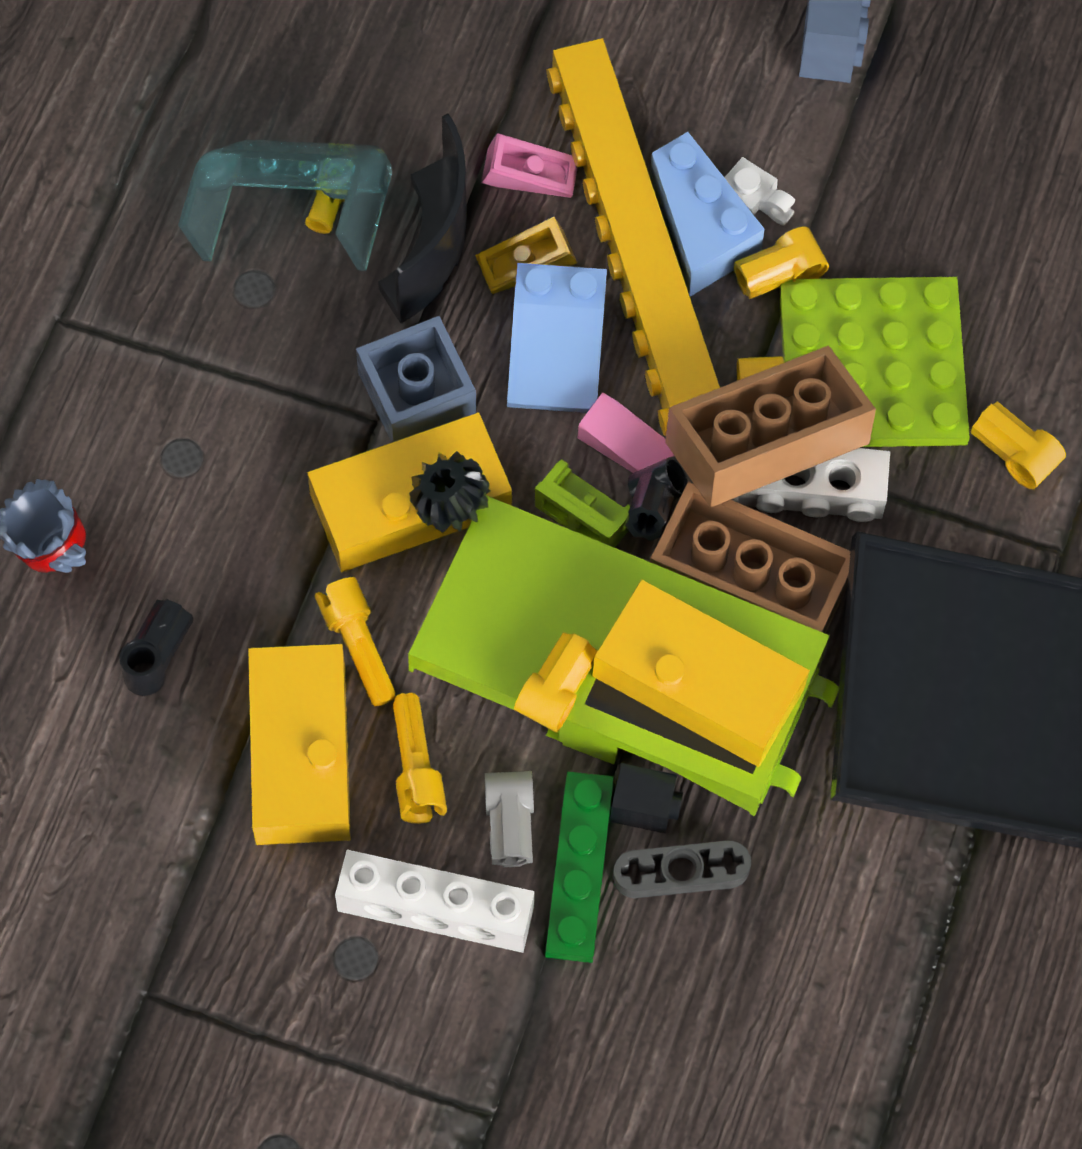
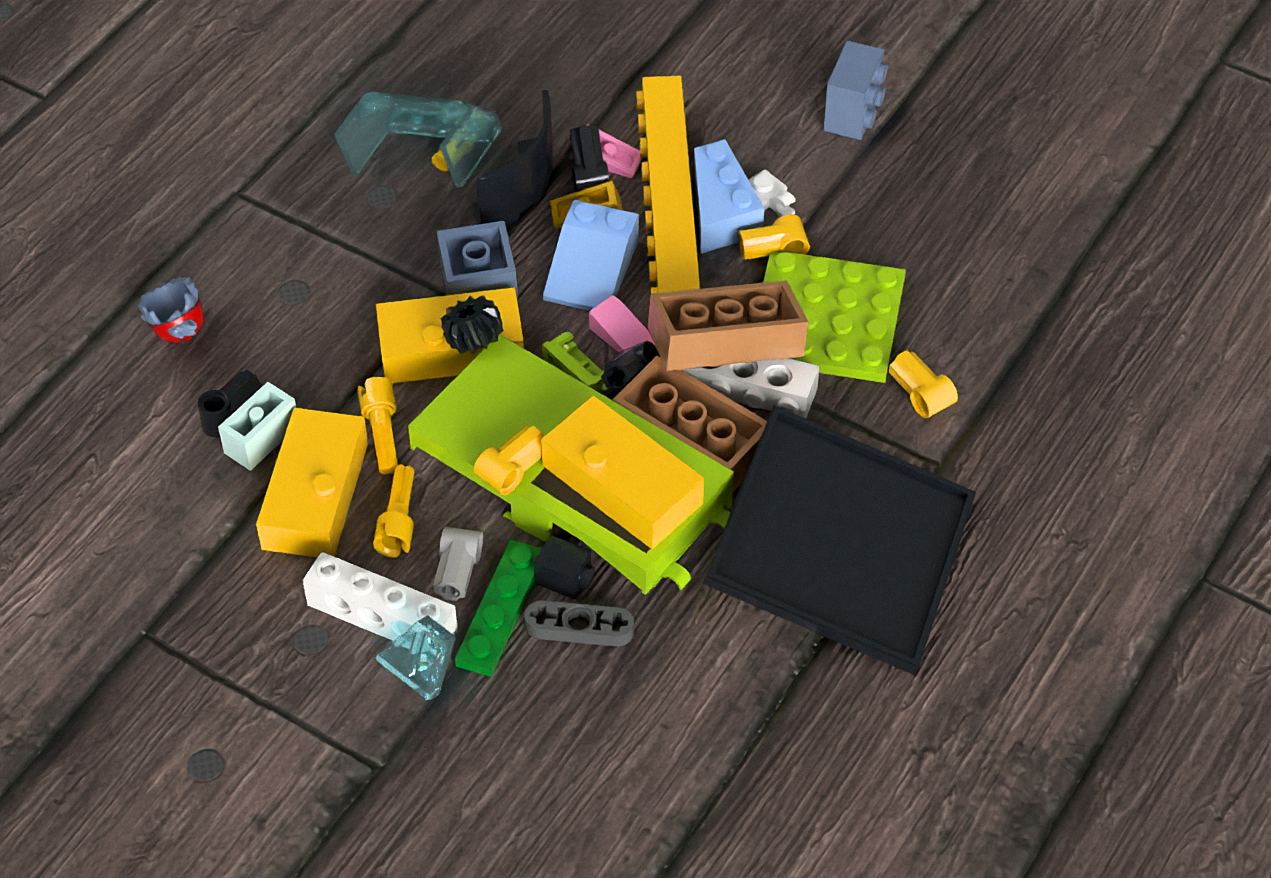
camera: 15 degrees right, 15 degrees down
(207, 678) = (257, 426): none -> light aqua brick
(506, 964) = (420, 656): none -> clear light blue wing
(518, 201) = (588, 166): none -> black piece

